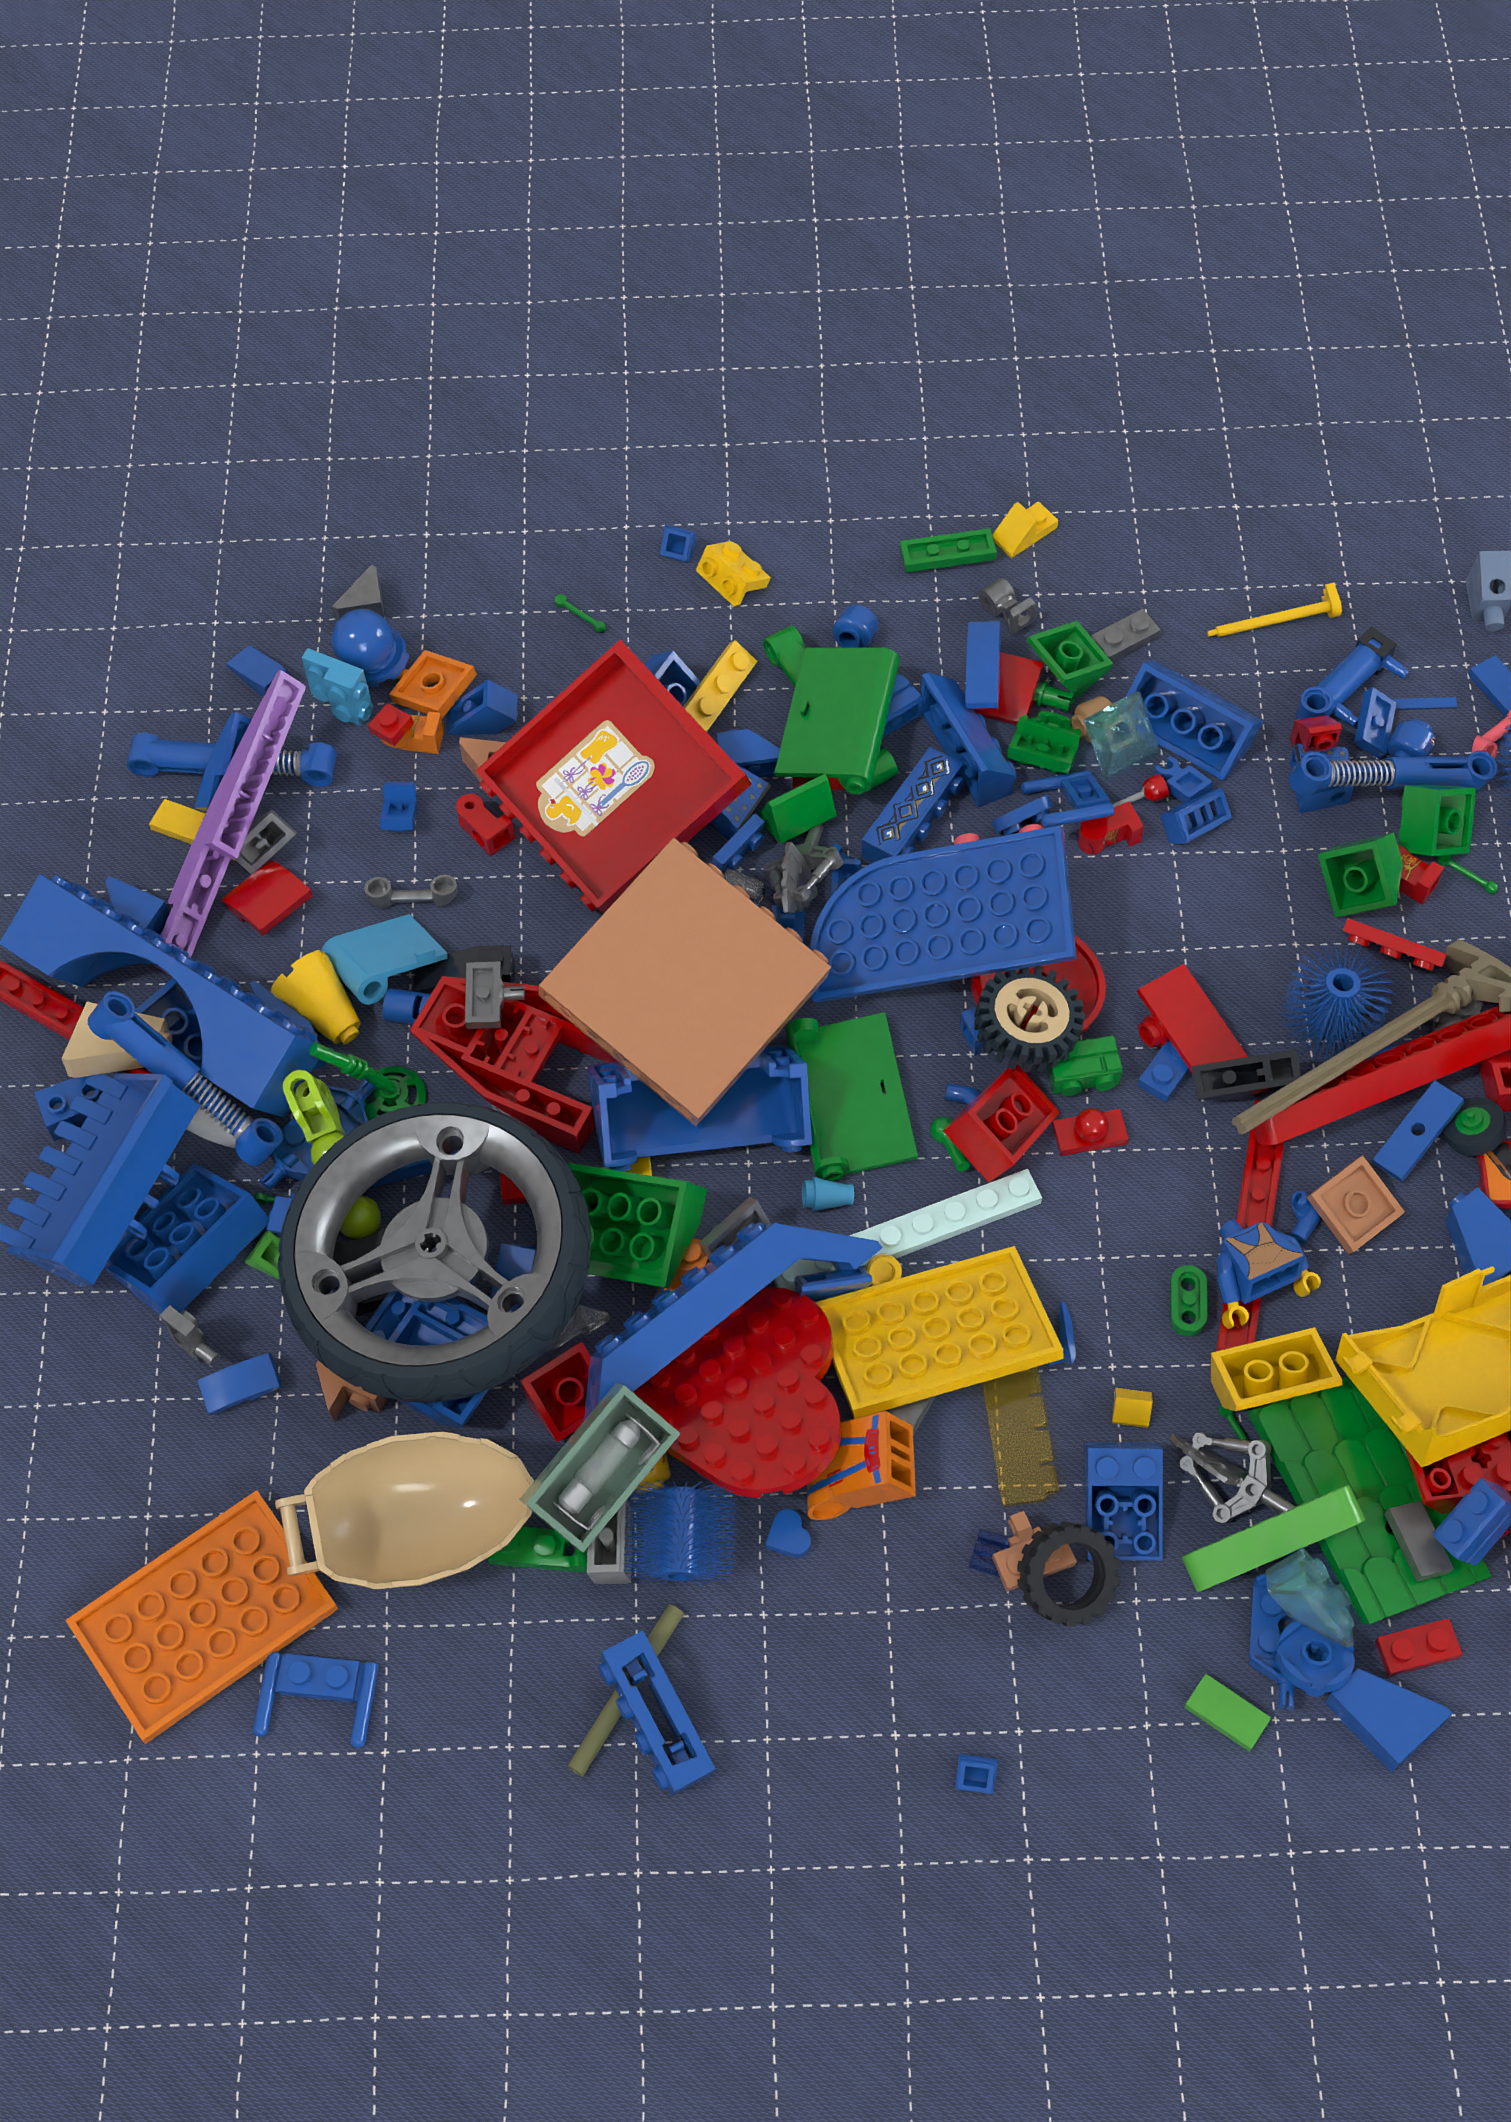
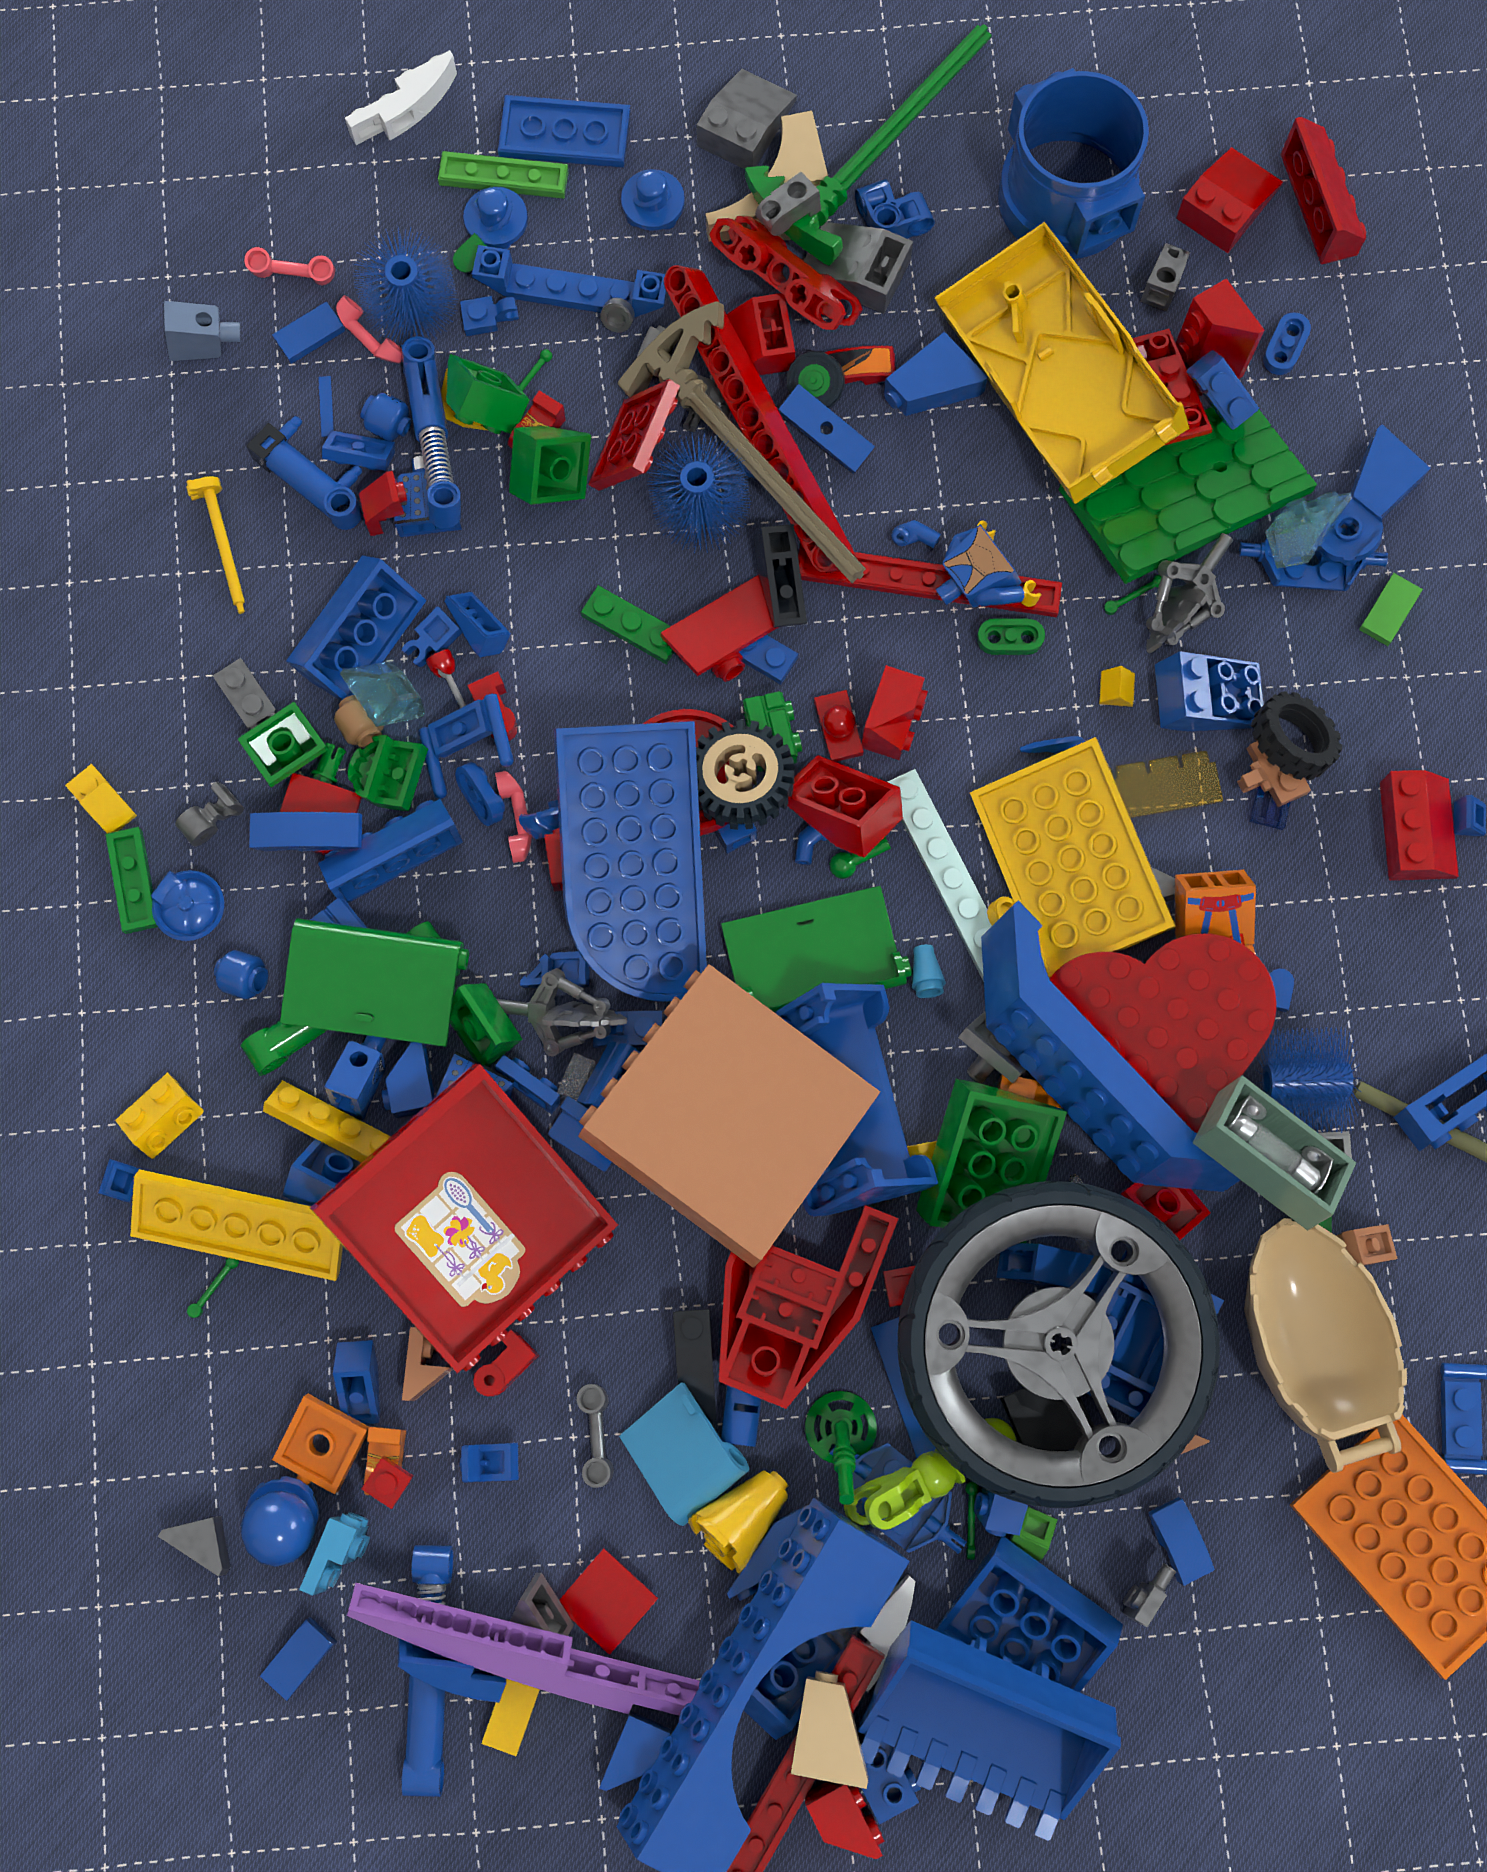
camera: 95 degrees left, 15 degrees up
(37, 1061) = (841, 1820): none -> red slope
(117, 1021) = (876, 1650): blue piece -> none
(487, 994) = (746, 1326): flat silver plate -> none
(505, 1593) = (1369, 1244): none -> nougat slope
(636, 599) = (233, 1225): none -> yellow plate
(753, 707) = (357, 1076): none -> blue torso
(914, 807) = (477, 904): blue brick -> none
(922, 588) = (187, 905): none -> blue piece
(965, 1710) = (1418, 826): none -> red slope
(1097, 1170) = (894, 708): none -> red slope
(1205, 943) = (628, 623): none -> green plate
(1272, 1370) = (1092, 557): yellow slope -> none
(1273, 1538) = (1251, 559): bright green beam -> none
(1355, 1204) = (905, 487): nougat plate -> none
(1416, 1539) = (1235, 444): flat silver tile -> none
(1418, 1647) = (1314, 452): red plate -> none

